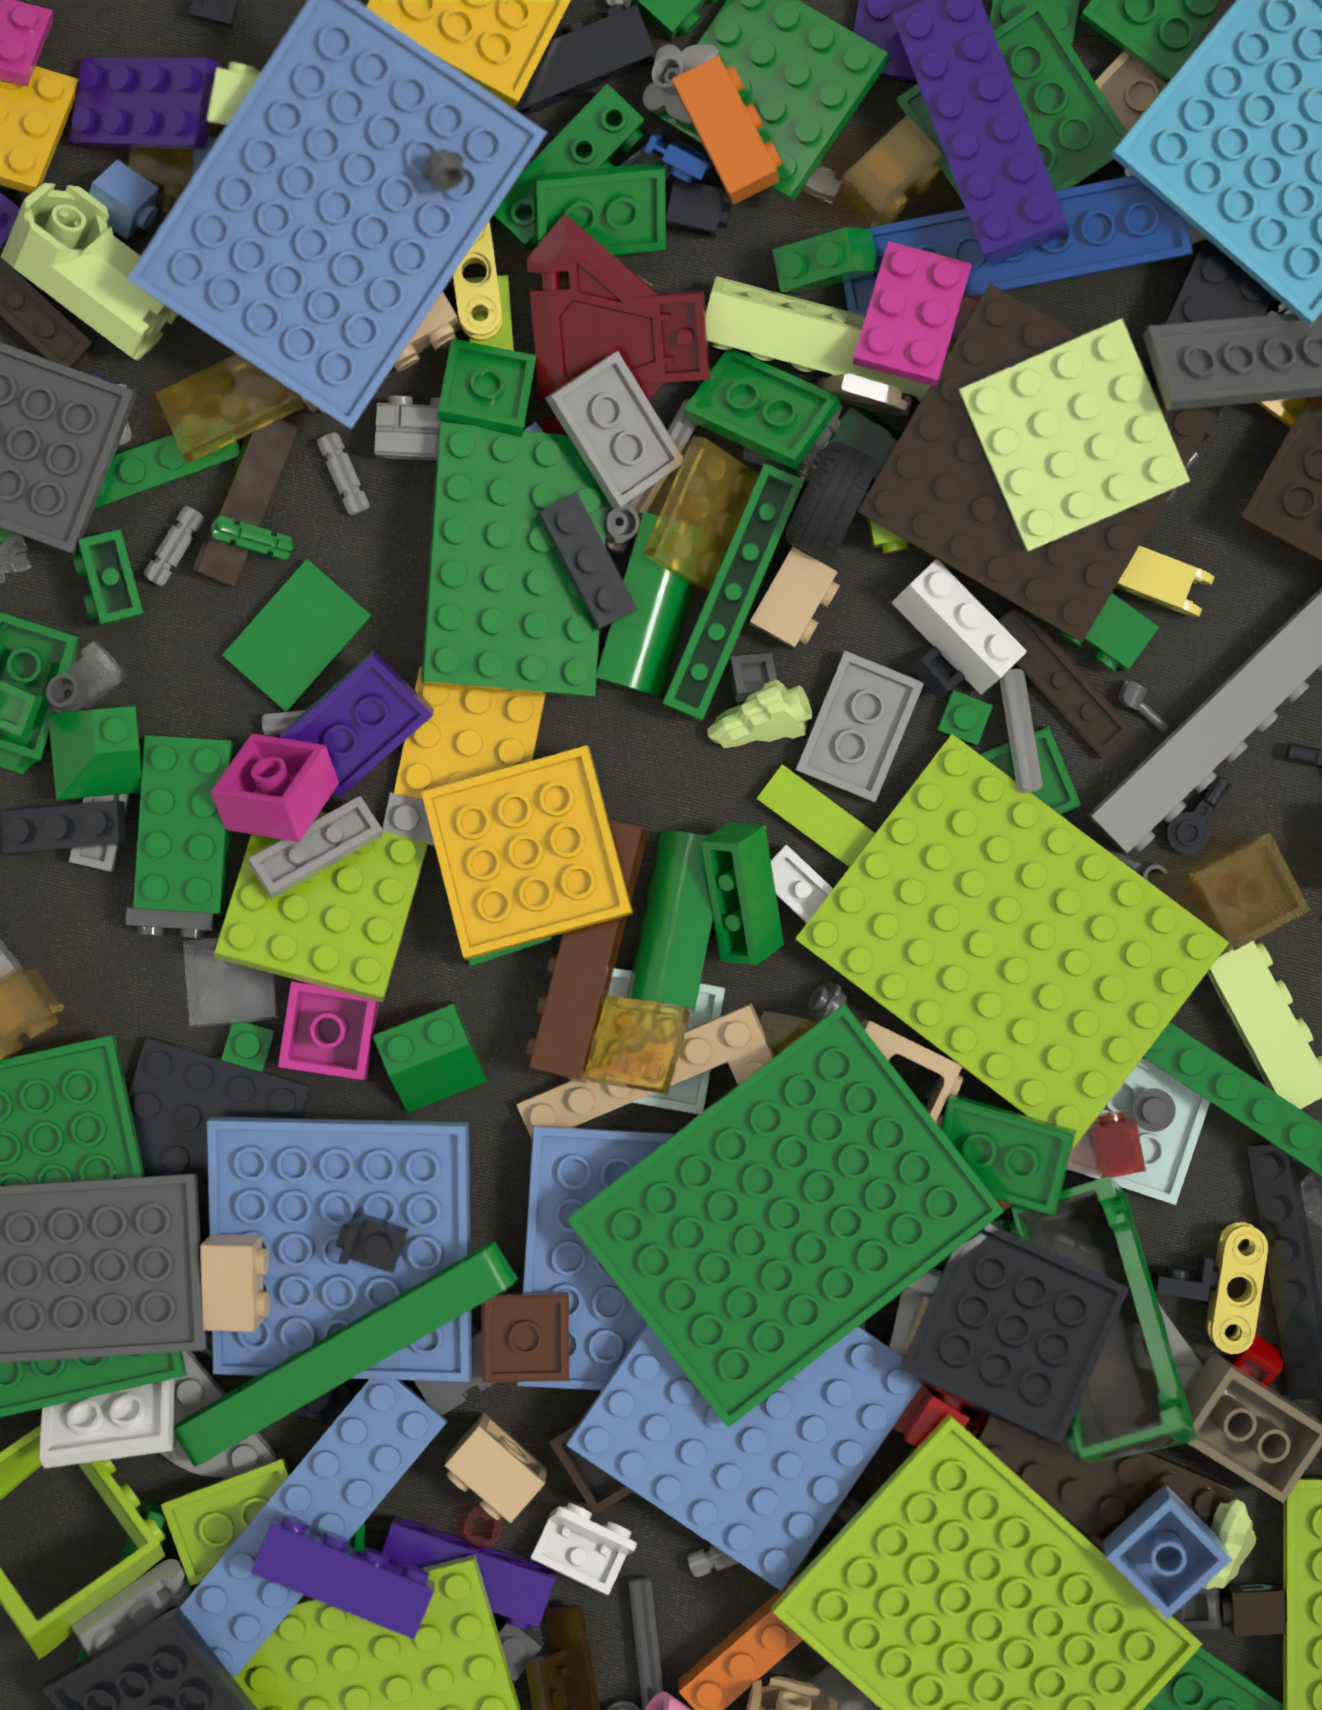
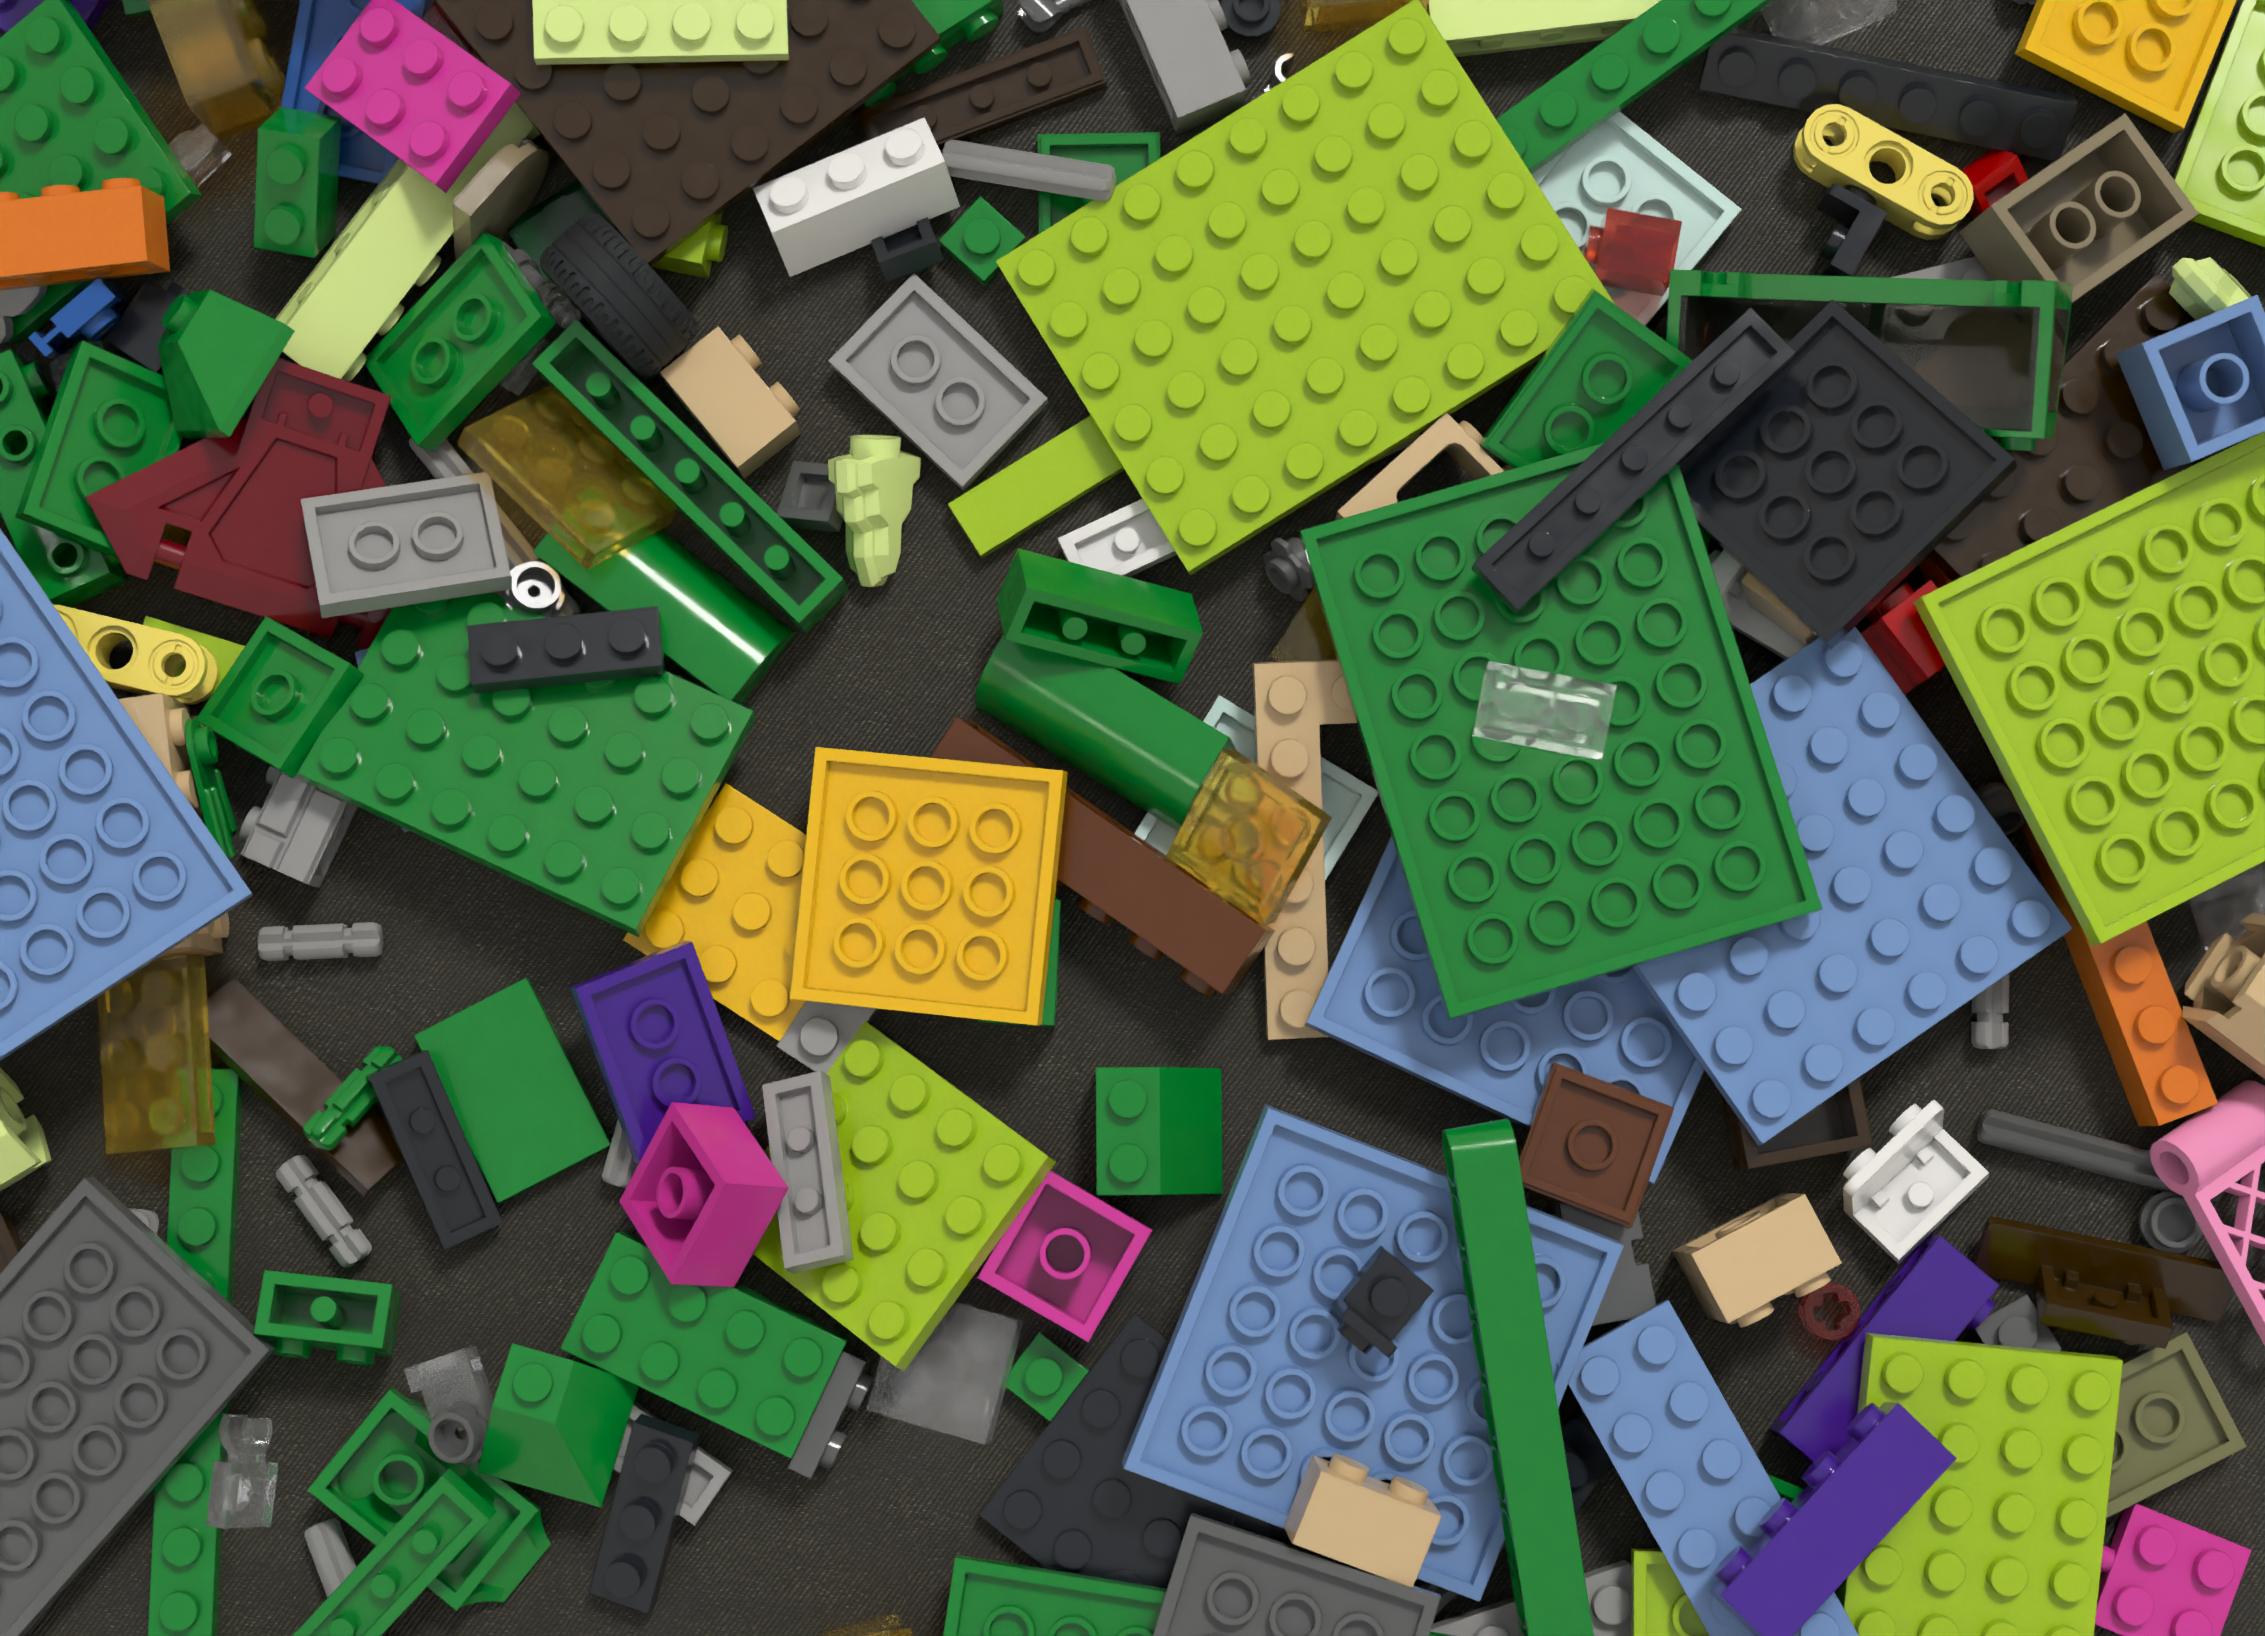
camera: 70 degrees left, 5 degrees down
(239, 602) = (434, 1149): none -> black plate
(429, 356) = (209, 783): none -> green piece
(684, 260) = (216, 360): none -> green slope
(783, 1206) = (1544, 710): none -> clear brick
(970, 1200) = (1633, 461): none -> black plate
(1153, 1109) = (1602, 184): dark grey plate -> none

